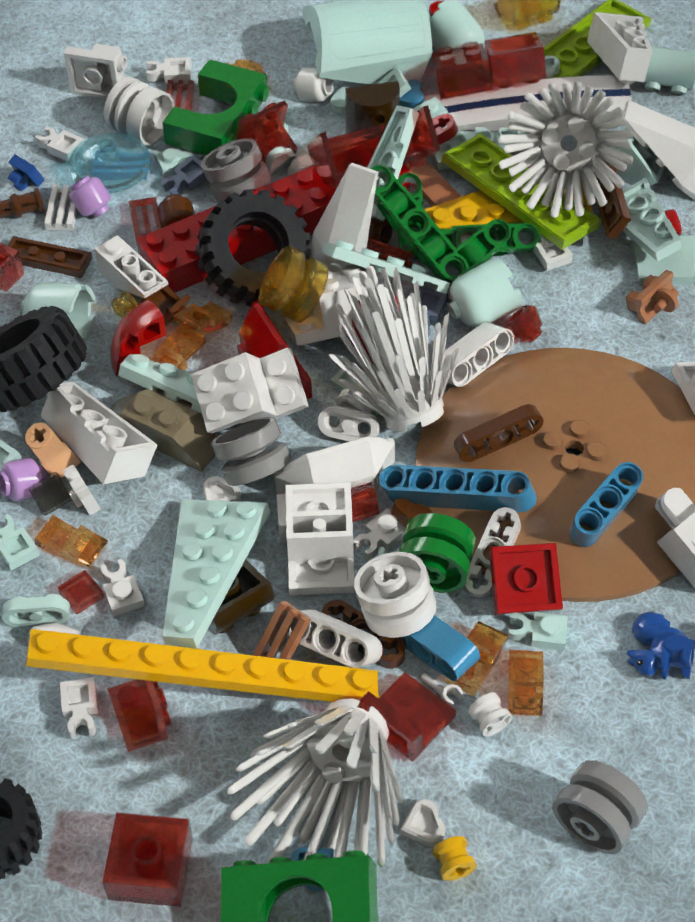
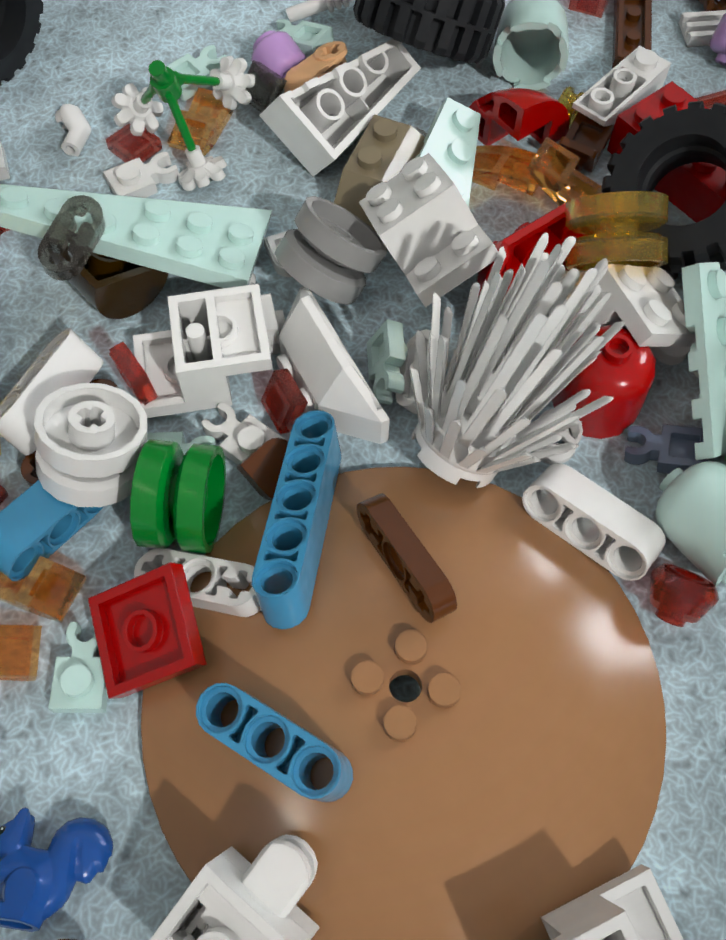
camera: 80 degrees right, 10 degrees up
(35, 610) = (98, 96): light aqua plate -> none
(55, 505) = (141, 112): none -> white plant
(80, 494) = (261, 97): white plate -> none
(231, 585) = (63, 232): none -> clear smoke beam
(273, 627) = (46, 333): nougat tile -> none
(333, 435) = (385, 356): none -> light aqua plate
(334, 576) = (132, 373): none -> clear red tile

